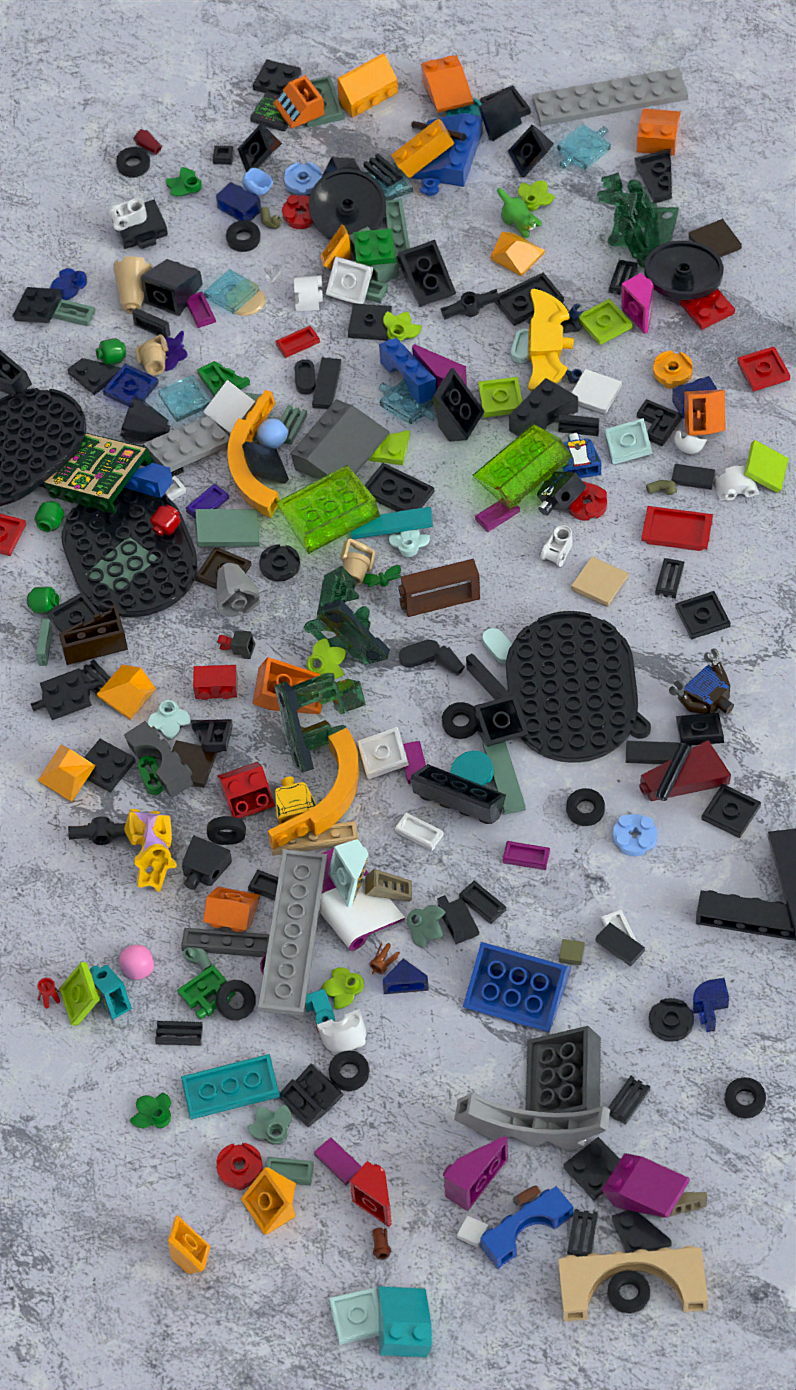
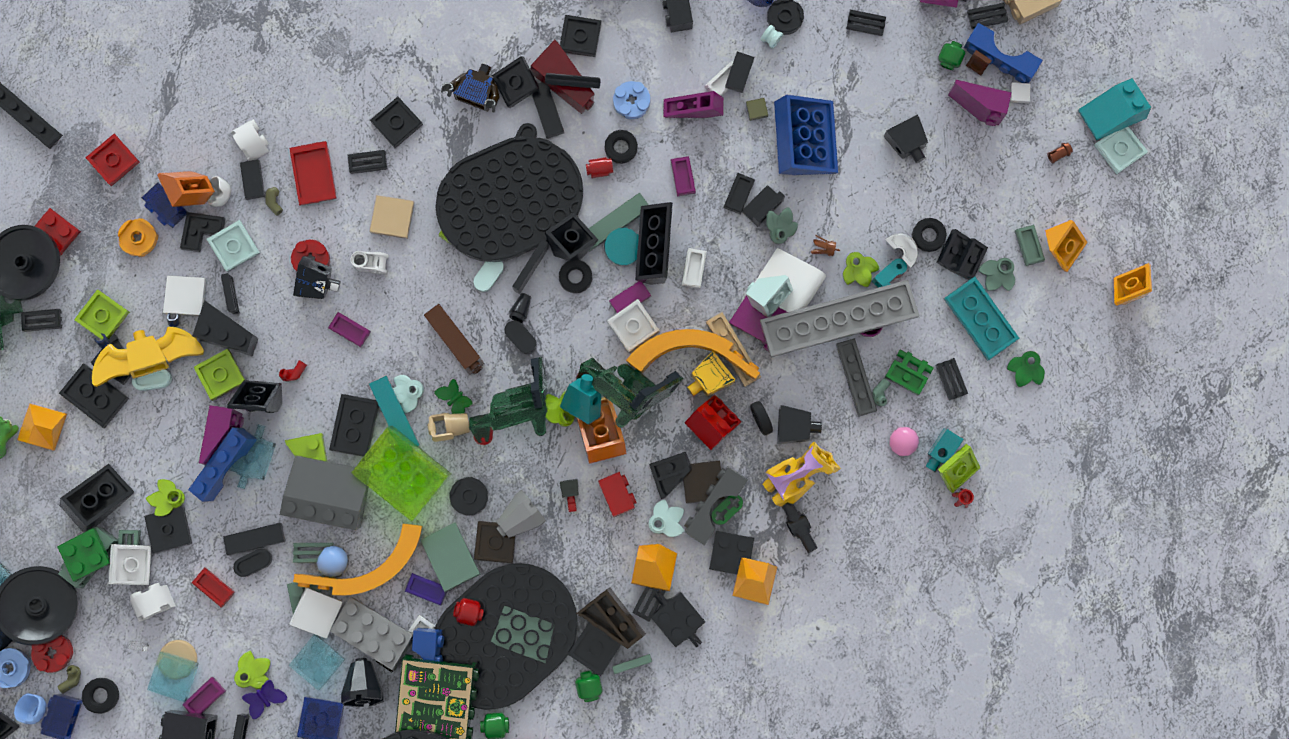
camera: 115 degrees left, 25 degrees up
(153, 355) = (279, 713): tan piece -> none
(204, 350) = (254, 669): none -> lime plate
(216, 375) = (283, 638): green wing -> none
(225, 1009) = (913, 335): black tyre -> none
(230, 908) = (827, 384): orange slope -> none
(240, 1178) = (1052, 276): red plate -> none
(264, 884) = (792, 367): black tile -> none
(265, 462) = (369, 551): black tile -> none
(320, 667) = (582, 400): none -> teal torso
(337, 247) = (95, 593): light orange slope -> none
(337, 1160) = (1006, 212): magenta tile -> none
(371, 1192) = (1029, 169): red slope -> none
(374, 886) = (763, 265): dark tan slope -> none
(396, 220) = (43, 551): sand green tile -> none
(405, 979) = (835, 223): clear blue slope -> none
(464, 1081) = (908, 139): none -> black torso
(473, 455) = (292, 374): none -> red arm
(476, 302) = (127, 450): black pin -> none
(523, 465) = (296, 321): clear neon green slope -> none
(531, 1127) = (924, 71): light grey arch -> none
(547, 1169) = (951, 55): none -> green head
(564, 1071) = (871, 73): dark grey slope -> none
(569, 777) = (599, 167): none -> red brick
(584, 458) = (267, 280): torso -> none
(592, 1167) = (931, 25): black plate -> none
(598, 889) = (694, 106): none -> magenta slope
(637, 300) = (73, 286): dark pink slope -> none
(649, 992) = (771, 36): none -> light aqua wheel
(766, 466) = (224, 119): lime tile -> none

